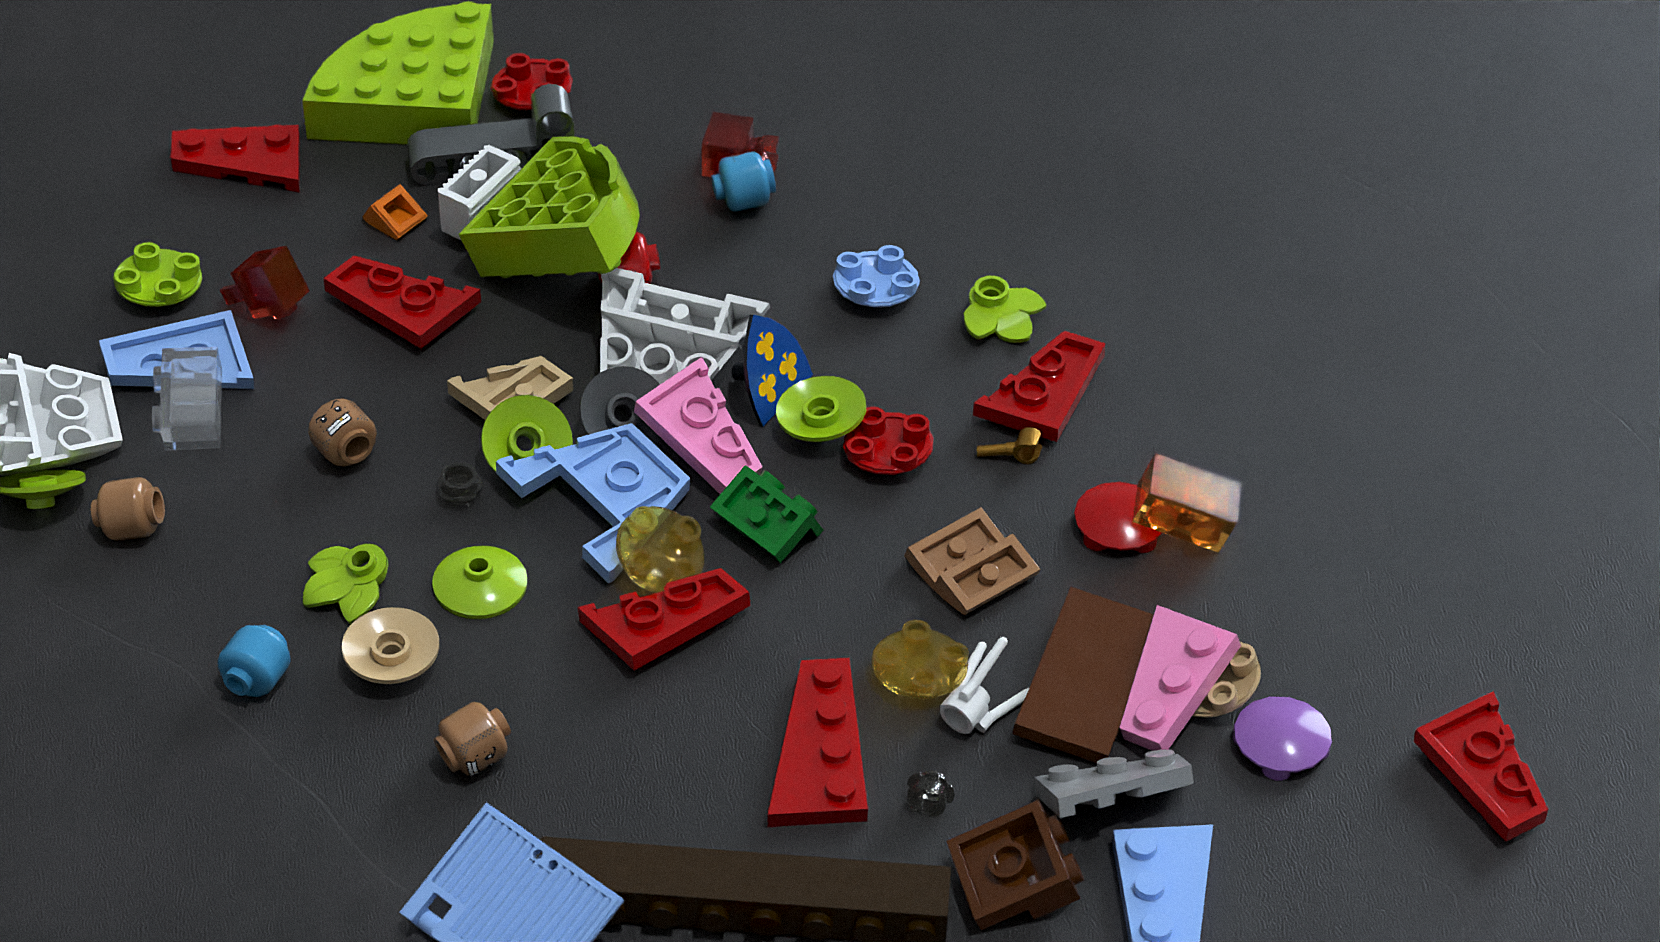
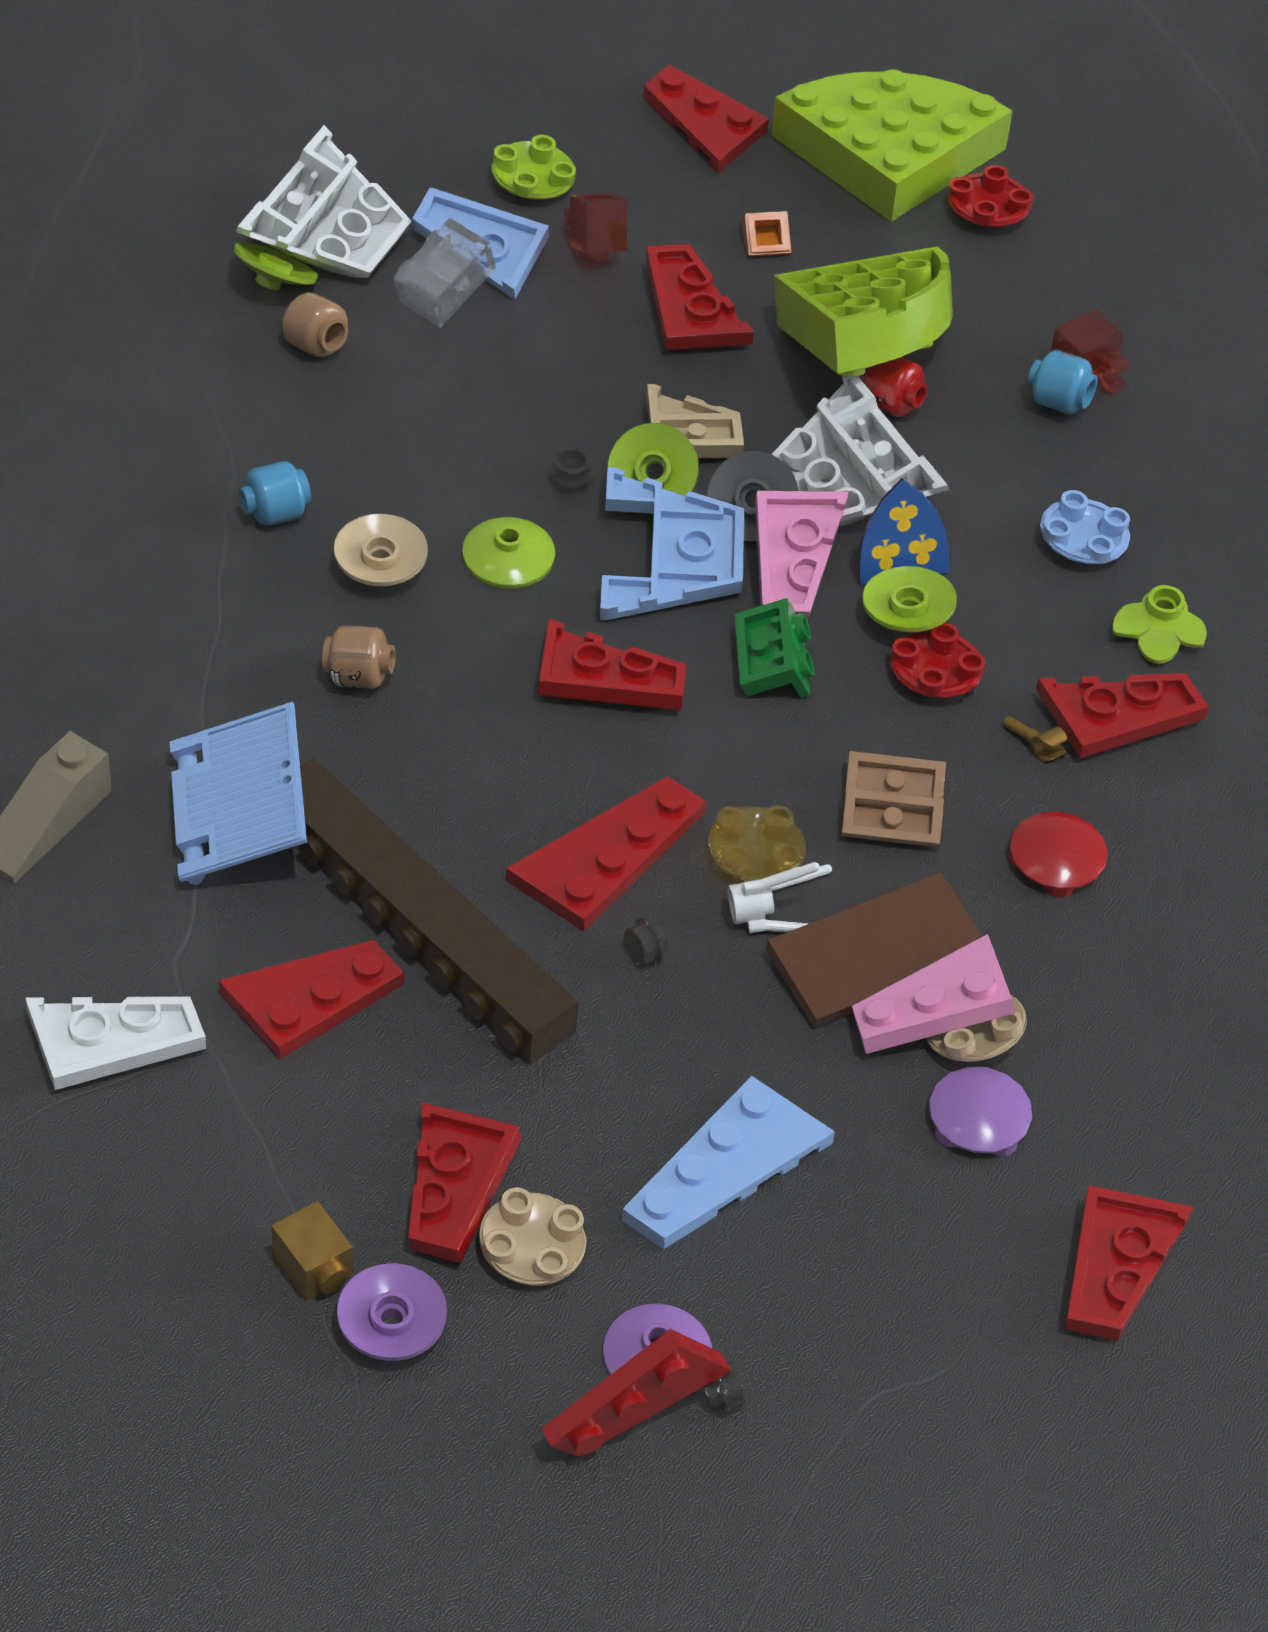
camera: 40 degrees right, 5 degrees up
(342, 432) = (526, 371): medium nougat head -> none
(344, 581) = (412, 482): lime plate -> none
(442, 151) = (890, 227): dark grey beam -> none
(474, 188) = (833, 244): white brick -> none
(659, 547) = (658, 616): clear yellow dish -> none
(1016, 866) = (640, 1043): reddish brown plate -> none
(1099, 785) = (797, 1035): light grey wing -> none
(1187, 502) = (1113, 875): clear orange brick -> none

